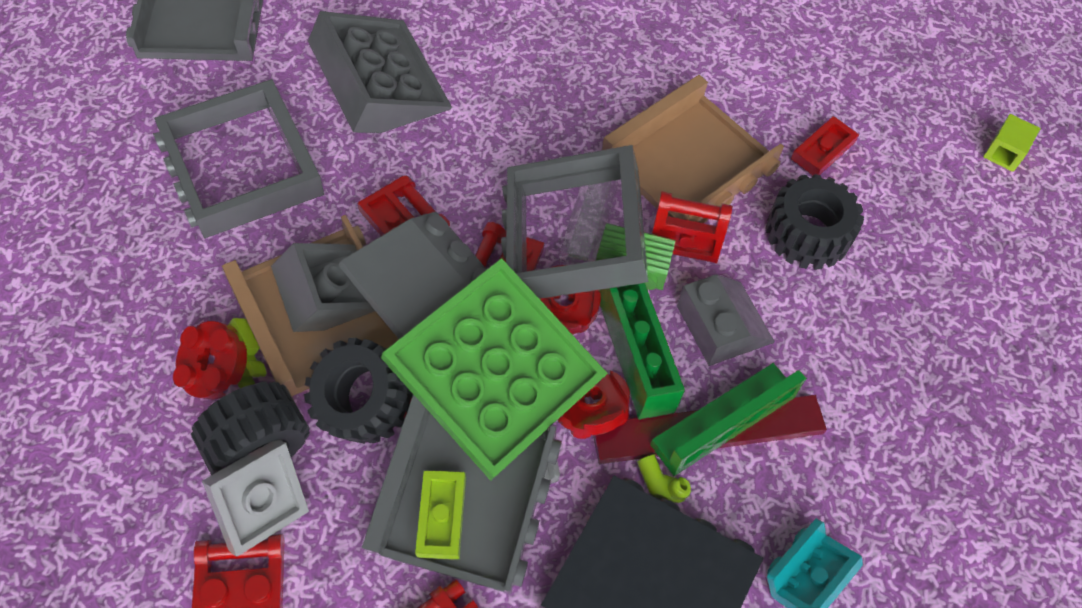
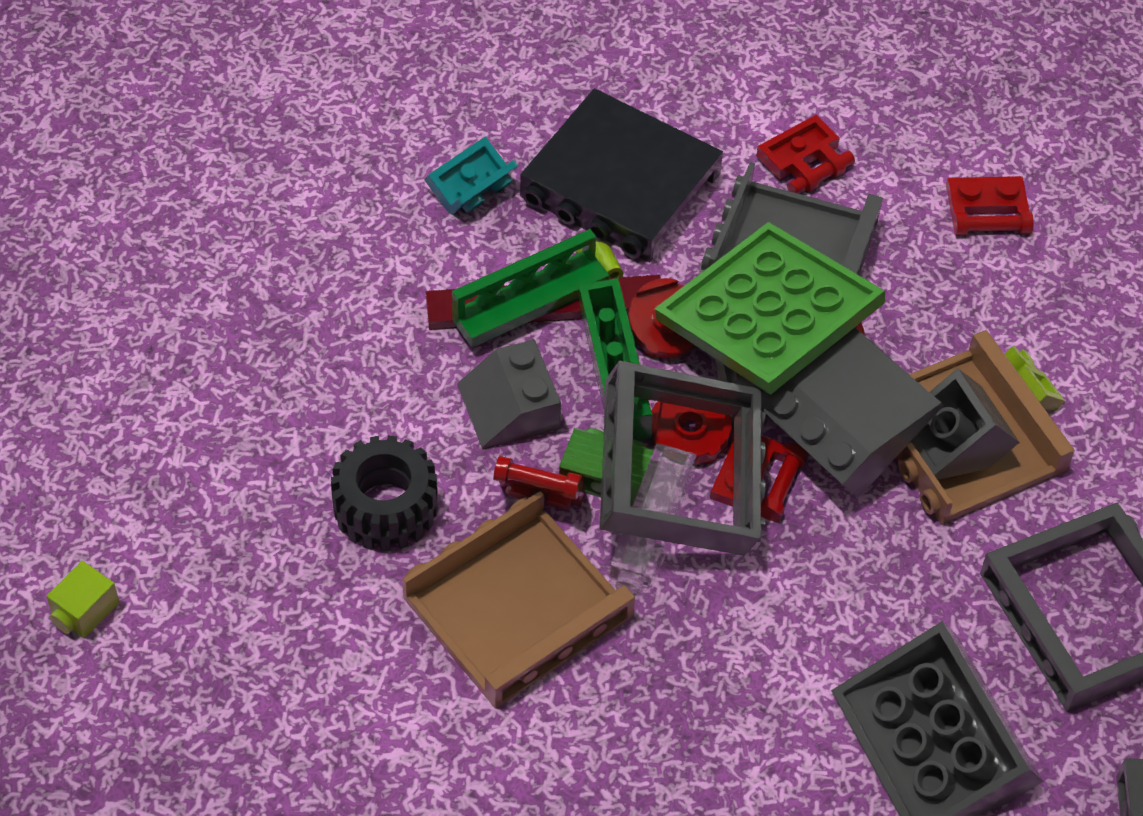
camera: 175 degrees left, 5 degrees down
(196, 346) = (1064, 369): red plate -> none
(247, 422) = (1001, 280): black tyre -> none
(256, 496) = (978, 238): light grey plate -> none
(331, 390) = (912, 321): black tyre -> none
(387, 212) = (889, 523): red plate -> none
(441, 515) = (814, 218): lime plate -> none
(824, 146) = (336, 607): red plate -> none

